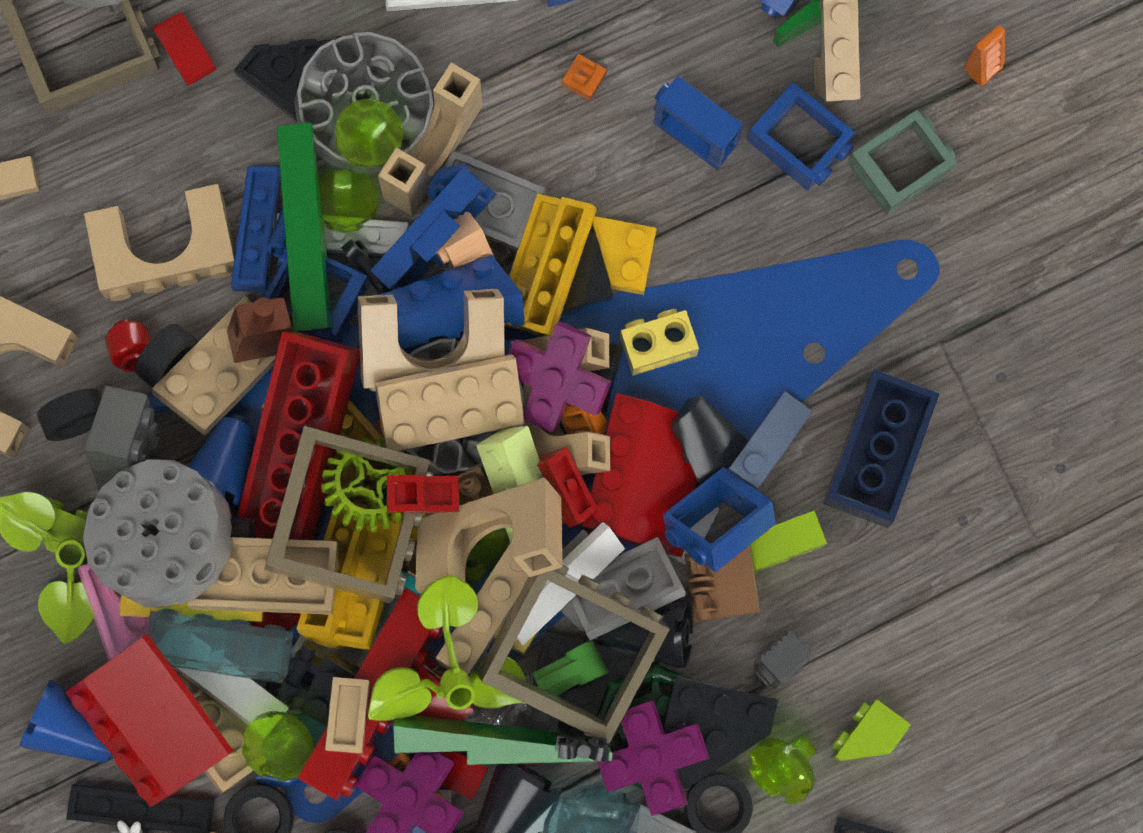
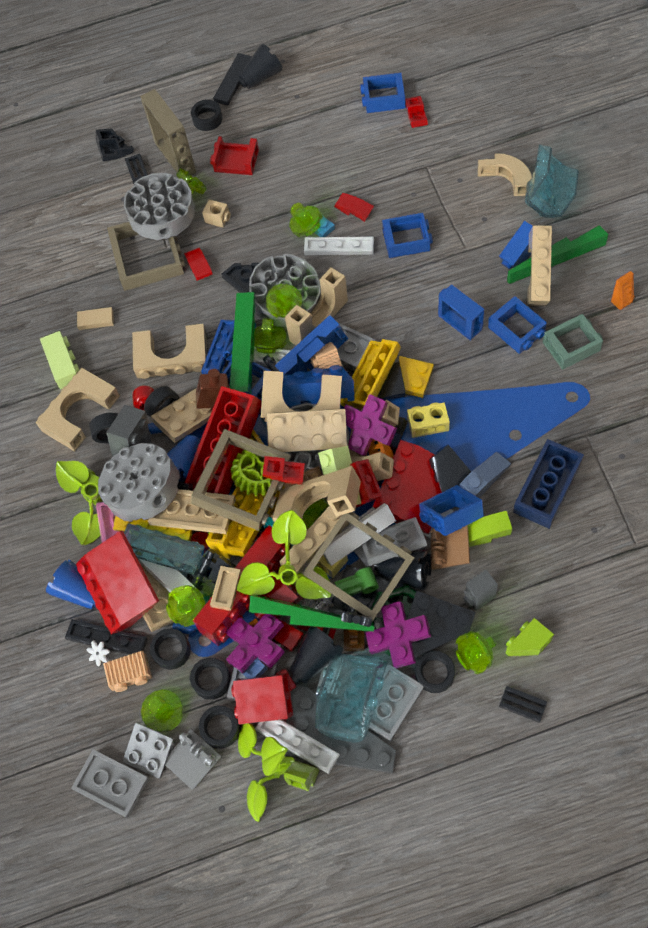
camera: 20 degrees right, 15 degrees down
(575, 772) = (354, 640): none -> reddish brown tile
(584, 77) = (403, 290): orange tile -> none

